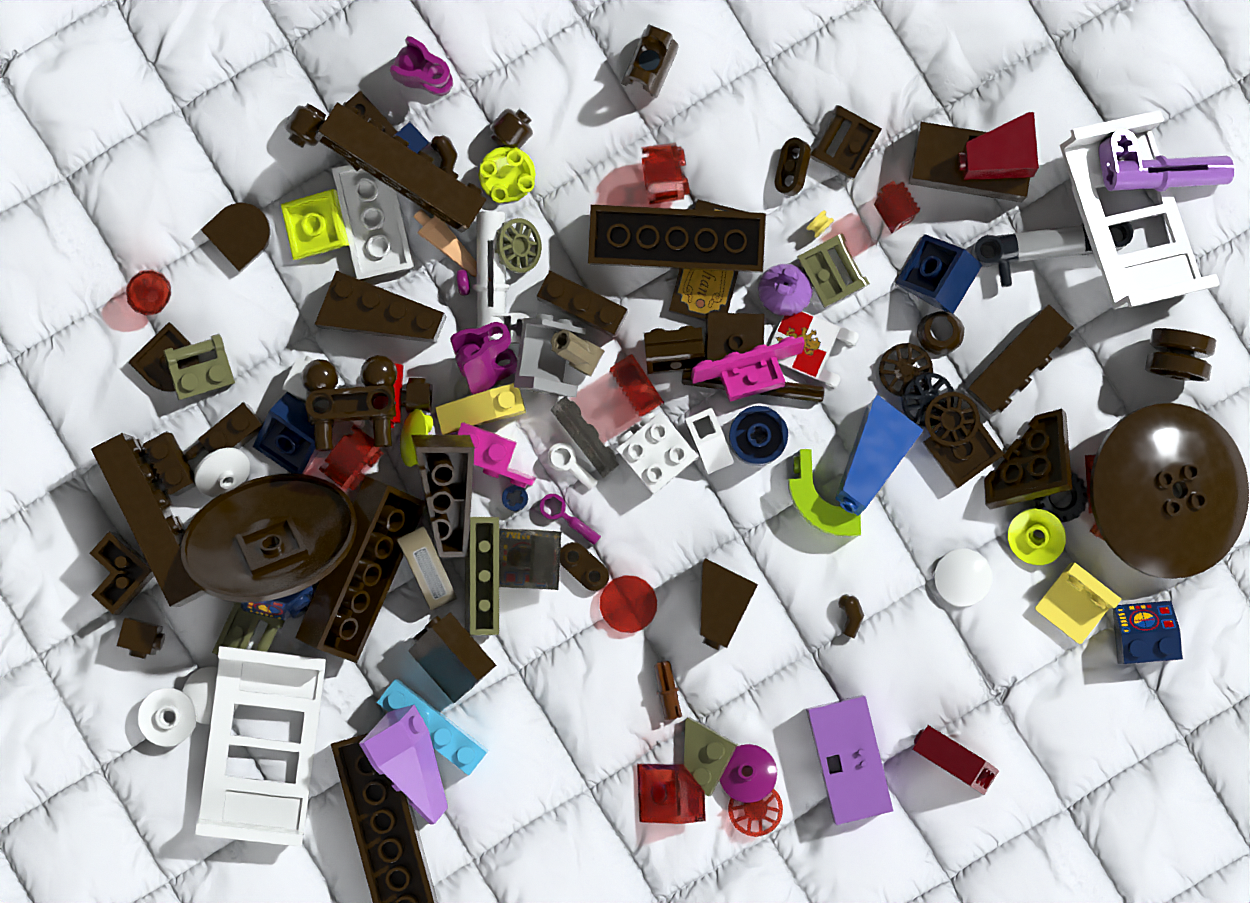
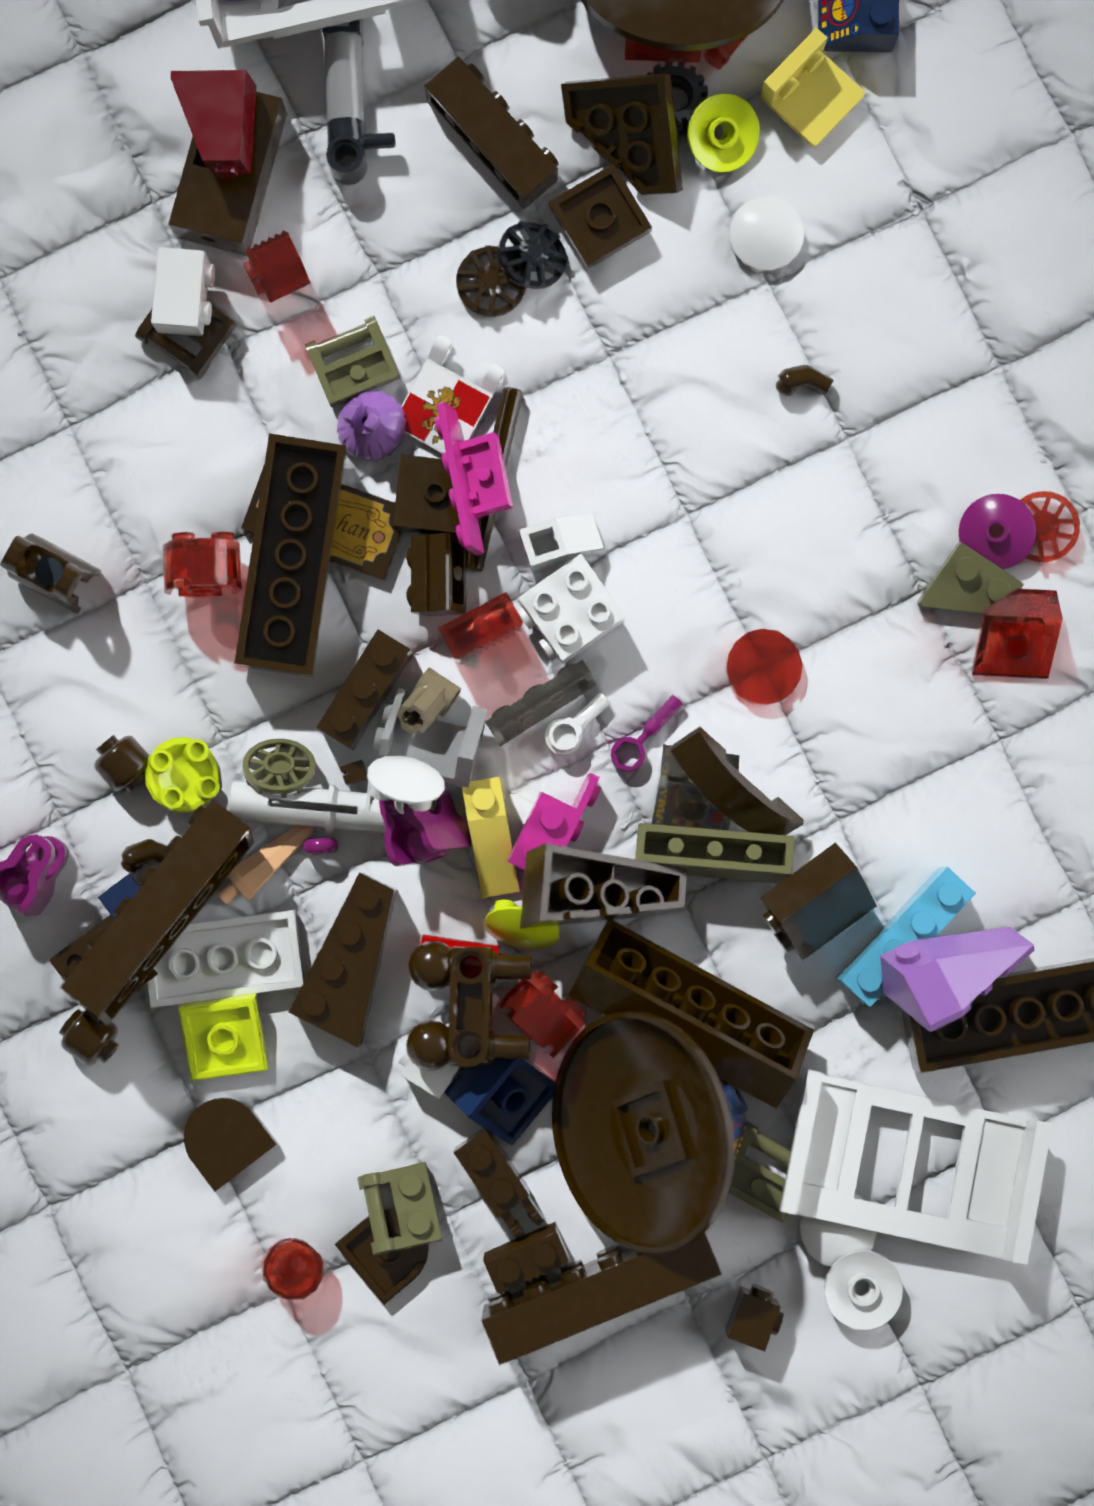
camera: 85 degrees left, 0 degrees up
(127, 574) = (664, 1328): dark brown brick -> none
(221, 471) = (543, 1189): white dish -> none
(417, 395) = (465, 919): dark brown plate -> none
(427, 568) = (696, 925): dark tan beam -> none
(512, 339) = (405, 781): none -> white dish
(512, 489) = (624, 800): dark blue bush -> none
(521, 304) = (357, 772): none -> dark brown piece
(527, 582) = (729, 790): none -> dark brown slope
(583, 566) = (708, 716): dark brown plate -> none
(667, 690) = (882, 625): reddish brown axle -> none
(722, 603) = (778, 541): dark brown slope -> none
(769, 423) = (544, 460): dark blue brick -> none
(792, 168) = (212, 400): dark brown plate -> none
(813, 508) = (661, 414): lime arch -> none
(820, 224) = (289, 371): light yellow bush -> none
(849, 759) = (991, 398): medium lavender brick -> none
(870, 137) = (182, 291): none -> white brick
(877, 451) = (600, 325): blue slope -> none
(933, 345) = (456, 248): dark brown piece -> none
(939, 273) = (369, 224): dark blue slope -> none
(952, 419) = (561, 224): dark brown wheel -> none
(955, 759) = (1000, 265): dark red slope -> none

